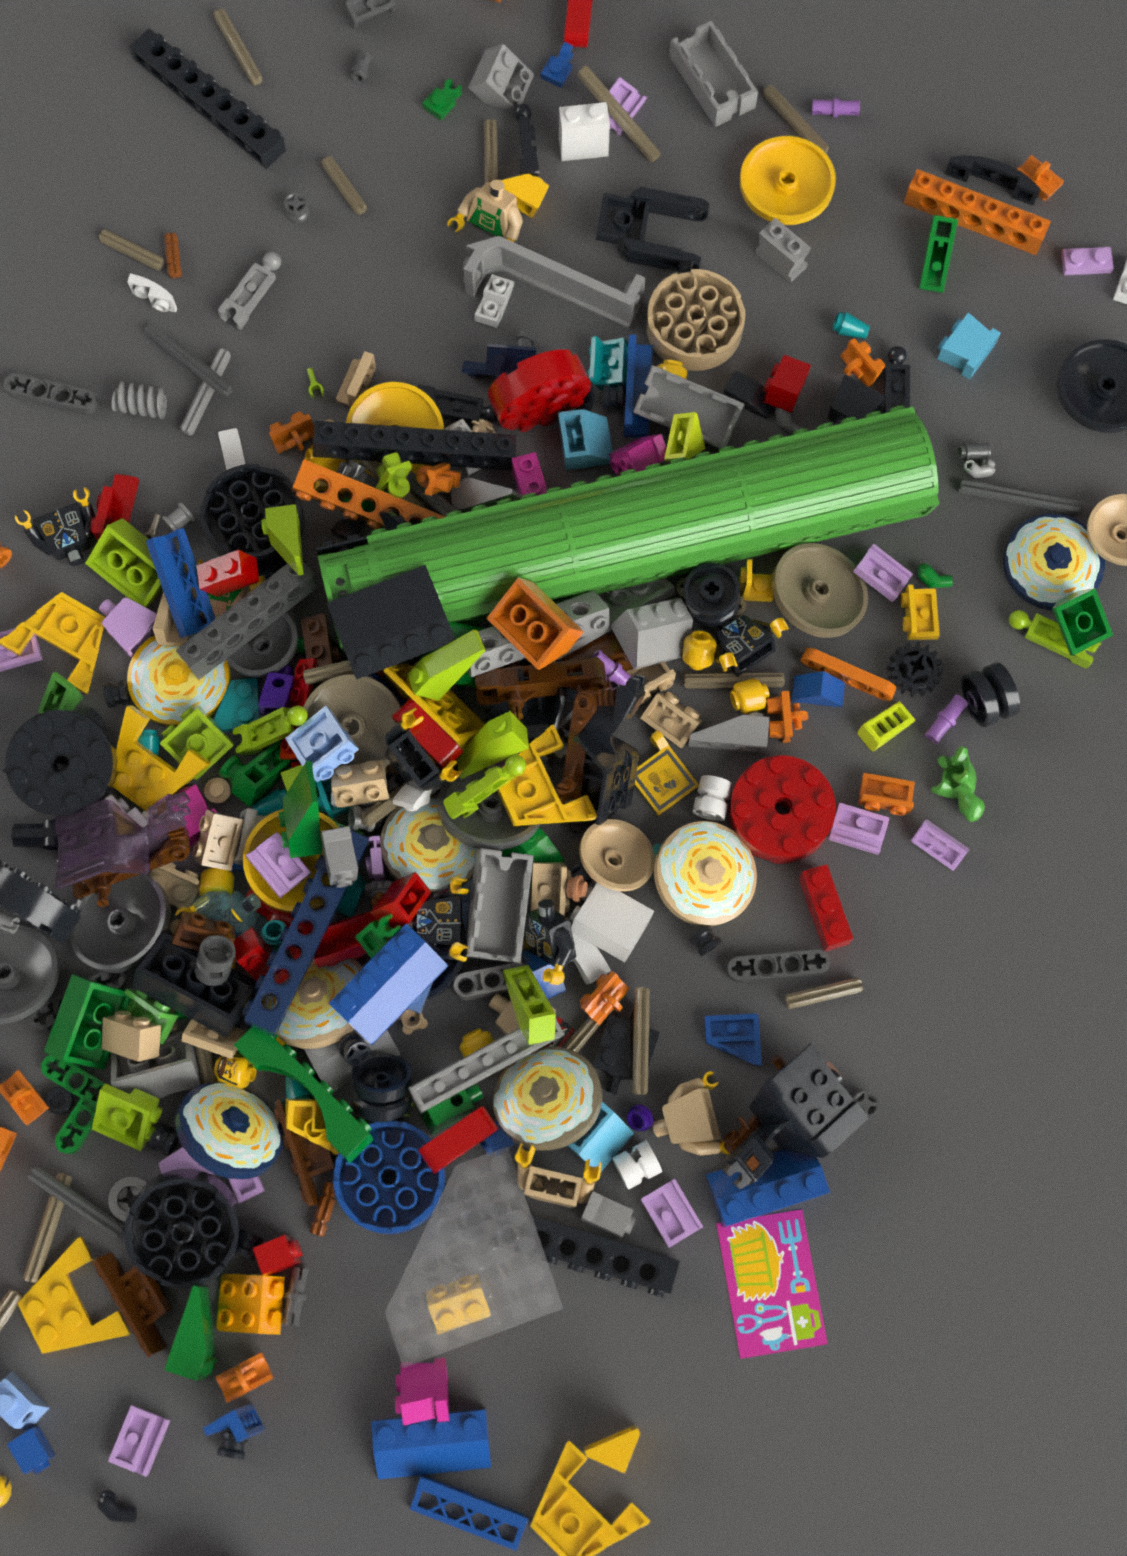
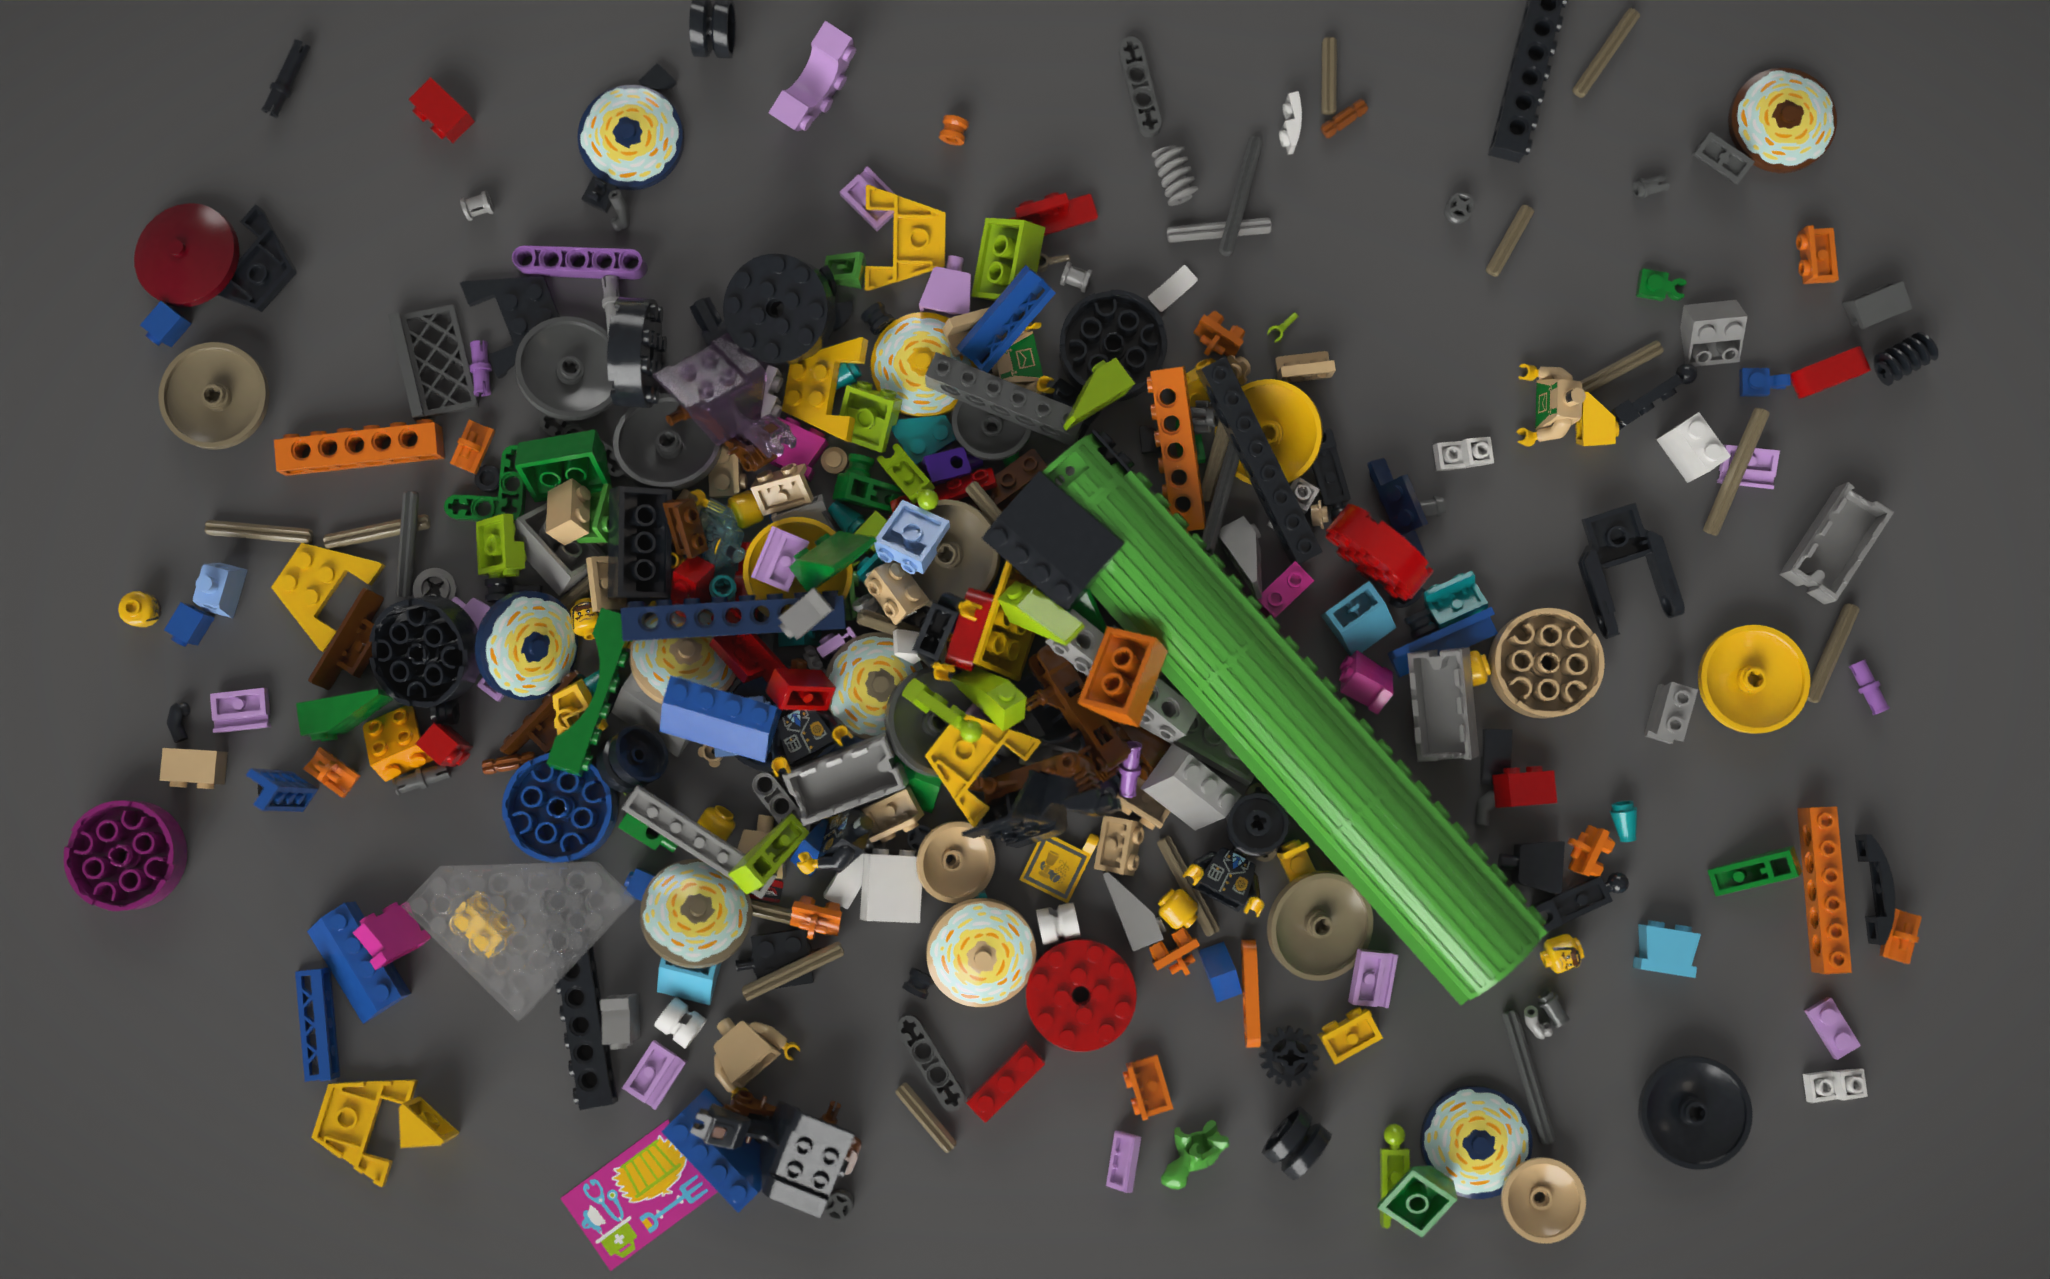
camera: 65 degrees right, 10 degrees up
(63, 531) = (1007, 178): black torso -> none
(166, 1513) = (193, 766): none -> tan brick
(214, 960) = (670, 551): dark grey wheel -> none
(227, 573) = (1035, 357): red brick -> none
(250, 291) = (1346, 213): light grey plate -> none
(361, 1050) = (649, 717): black wheel -> none
(376, 935) = (756, 685): green plate -> none
(390, 519) = (1167, 483): black tile -> none
(393, 475) = (1216, 459): lime hips -> none
(437, 478) = (1236, 502): orange hips -> none
(458, 1139) = (617, 853): red beam -> none
(552, 277) = (1512, 439): light grey panel -> none
(554, 1186) = (619, 959): tan torso -> none
(576, 888) = (902, 841): nougat plate -> none
(640, 1118) = (725, 1004): dark purple plate -> none
(684, 437) = (1401, 719): neon yellow slope -> none
(699, 650) = (1198, 838): yellow head -> none
(735, 1035) = (844, 1054): blue wing -> none
(858, 828) = (1101, 1076): lavender plate -> none
(874, 737) = (1198, 1043): neon yellow slope -> none
(931, 578) = (1393, 1028): green arm -> none
(935, 419) = (1562, 953): none -> yellow head
(946, 719) = (1254, 1110): medium lavender pin -> none

